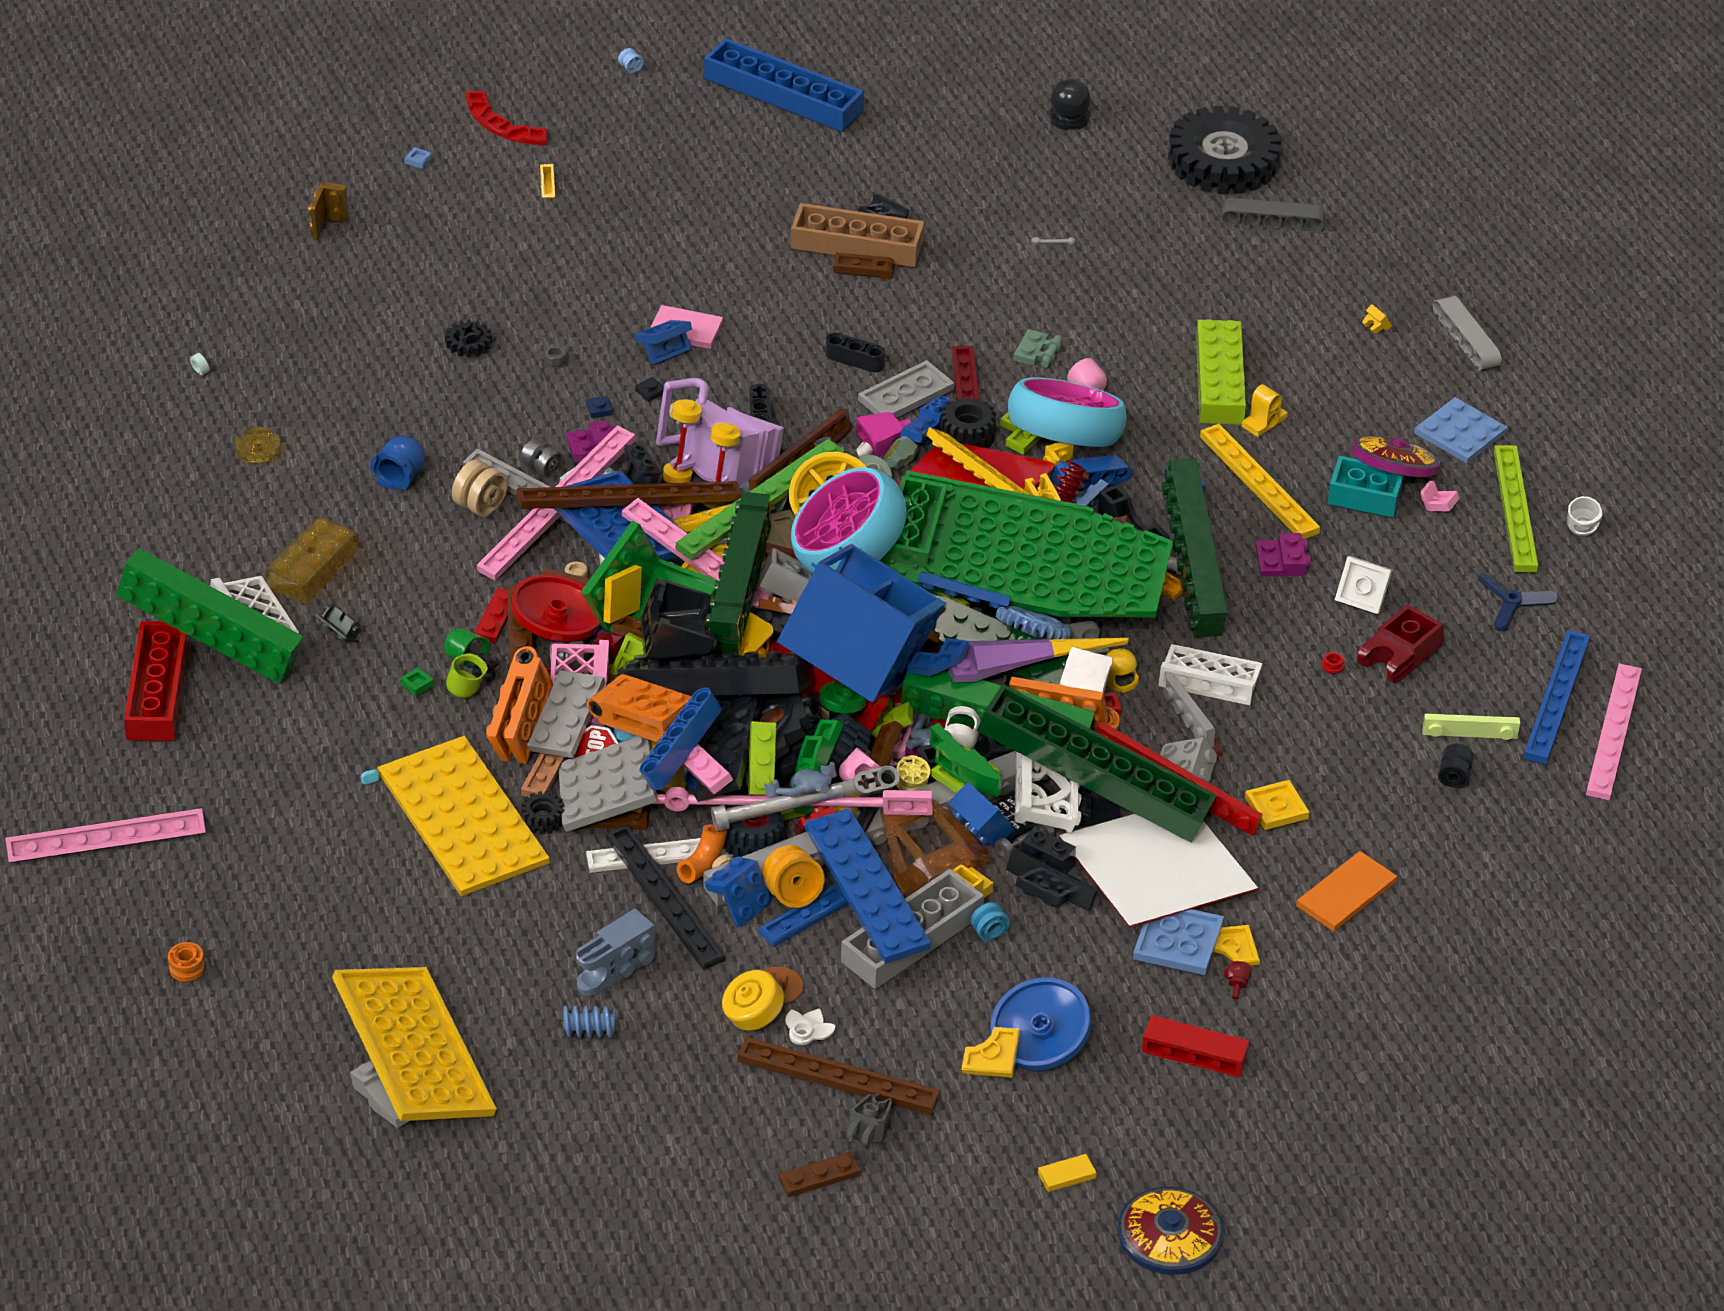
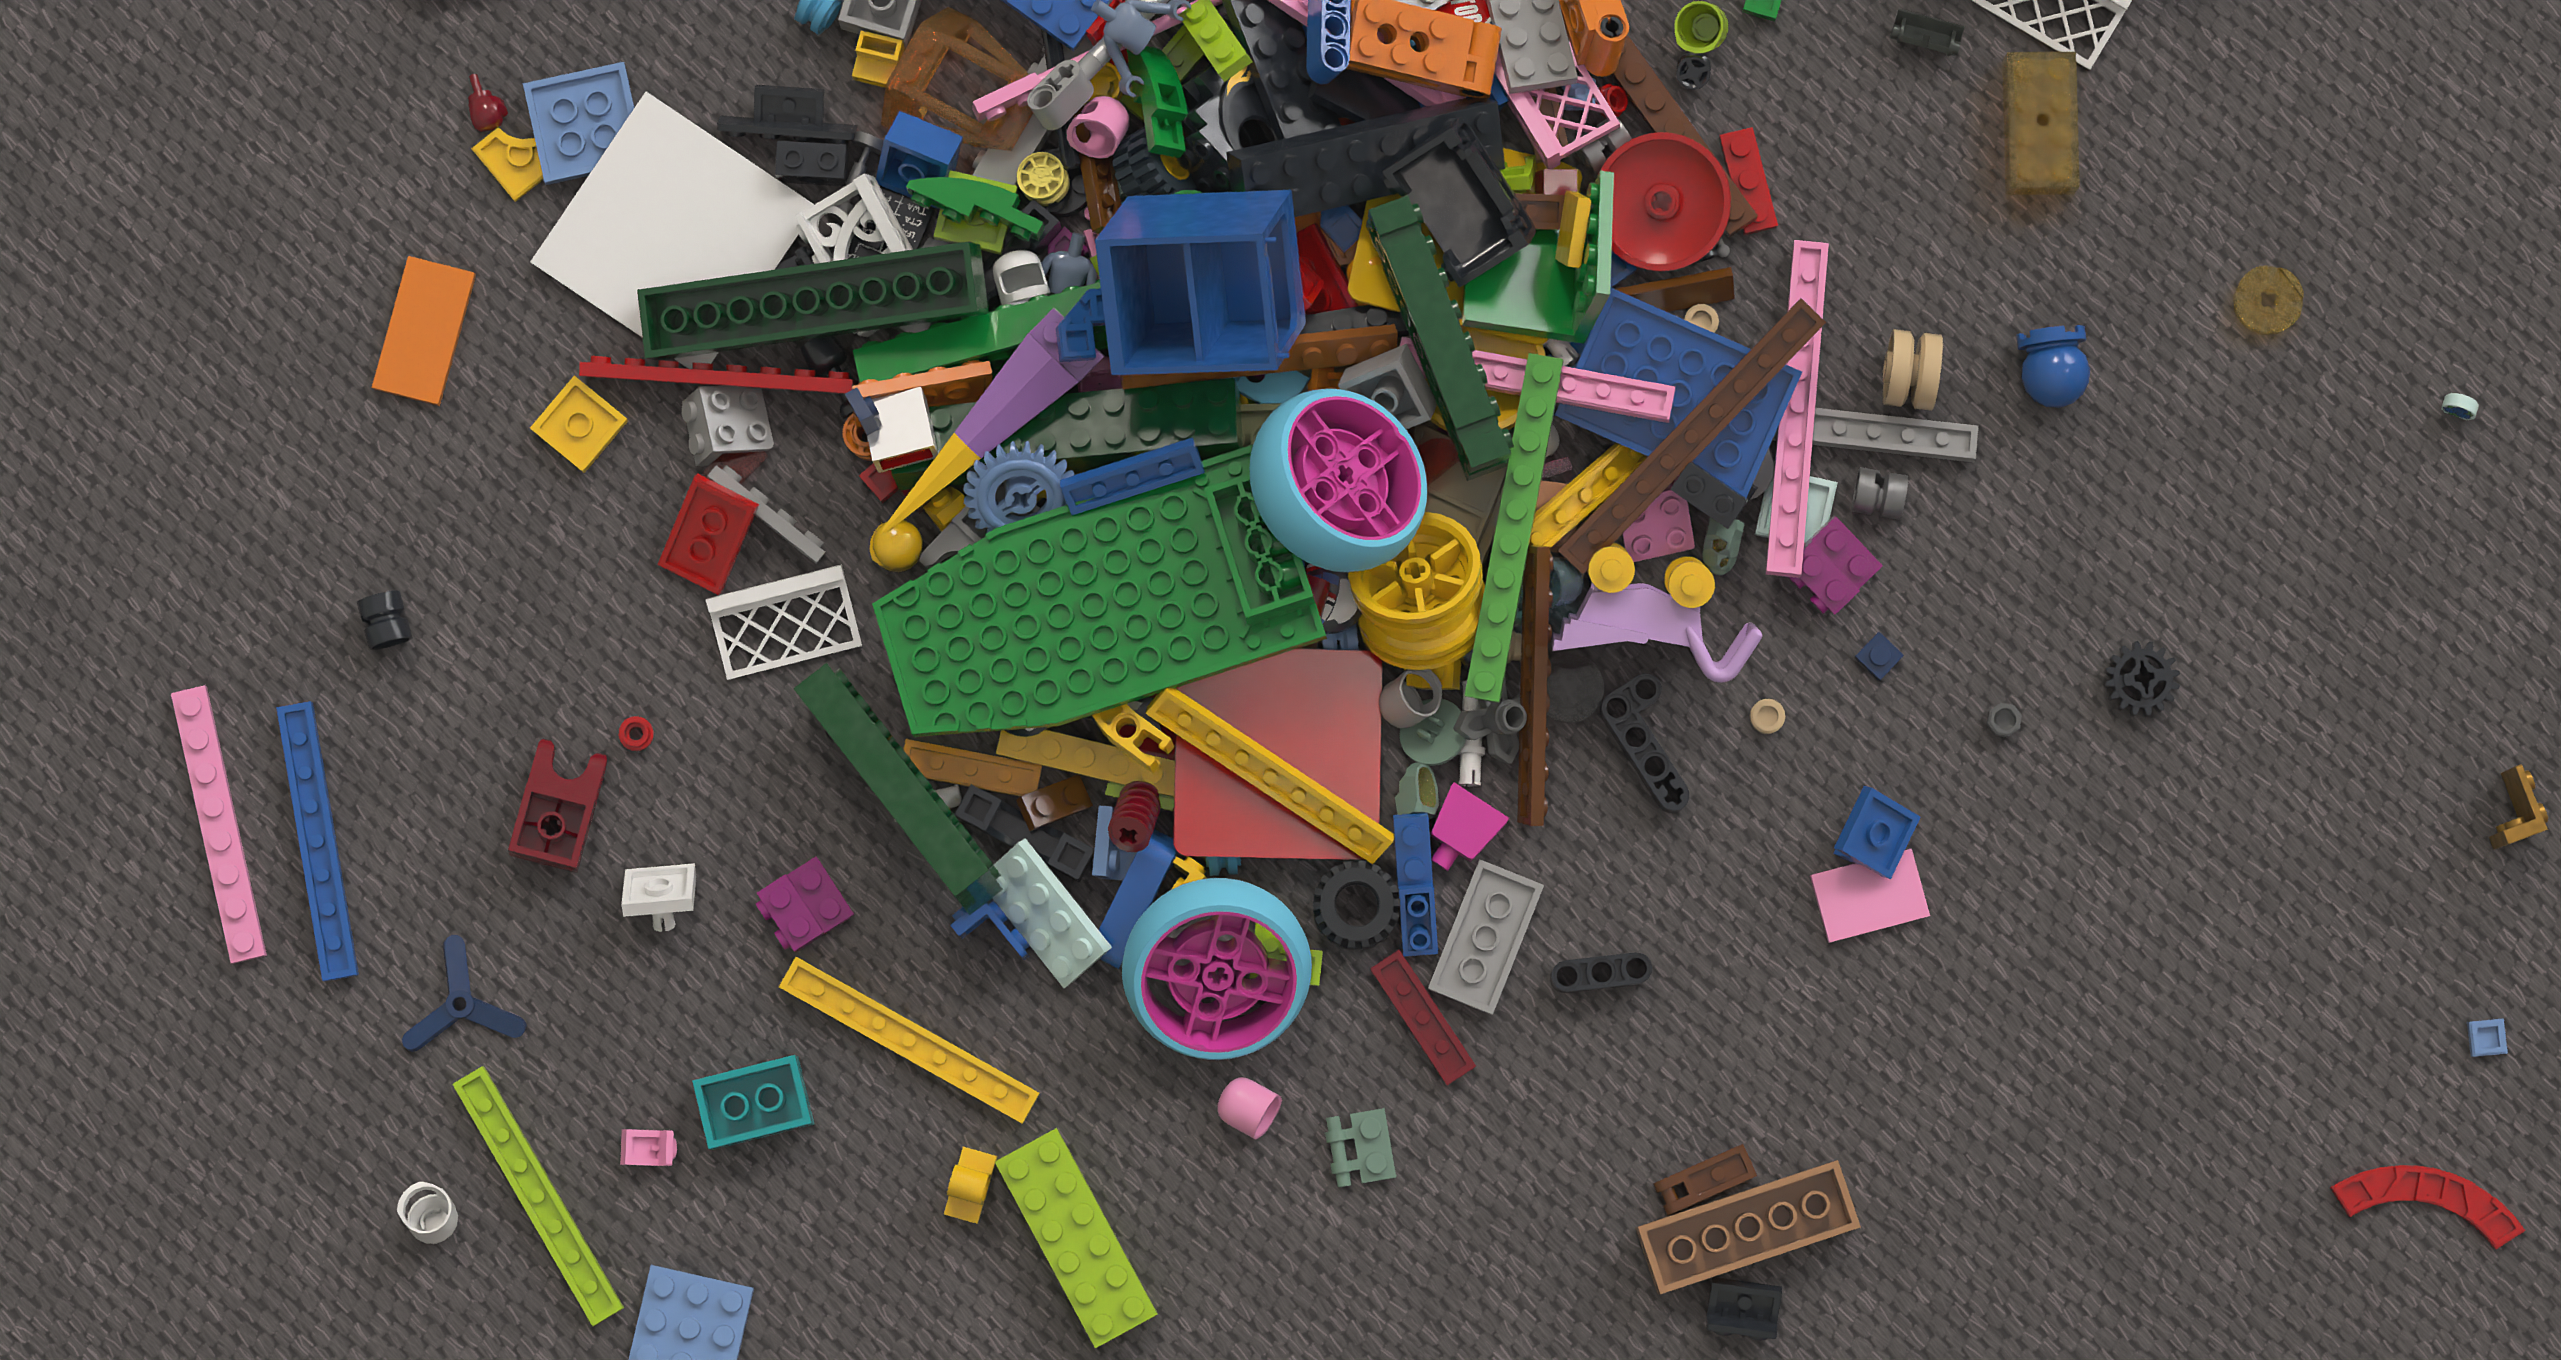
camera: 150 degrees right, 40 degrees up
(459, 642) = (1744, 80): green helmet -> none
(547, 181) = (2267, 1094): yellow piece -> none
(649, 389) = (1834, 734): black plate -> none
(1101, 677) = (864, 410): none -> dark blue plate
(1145, 488) = (1047, 914): none -> light aqua plate
(1231, 715) = (708, 534): none -> red tile
(1395, 456) = (740, 1184): dish -> none
(1471, 726) = (357, 732): yellowish green plate -> none

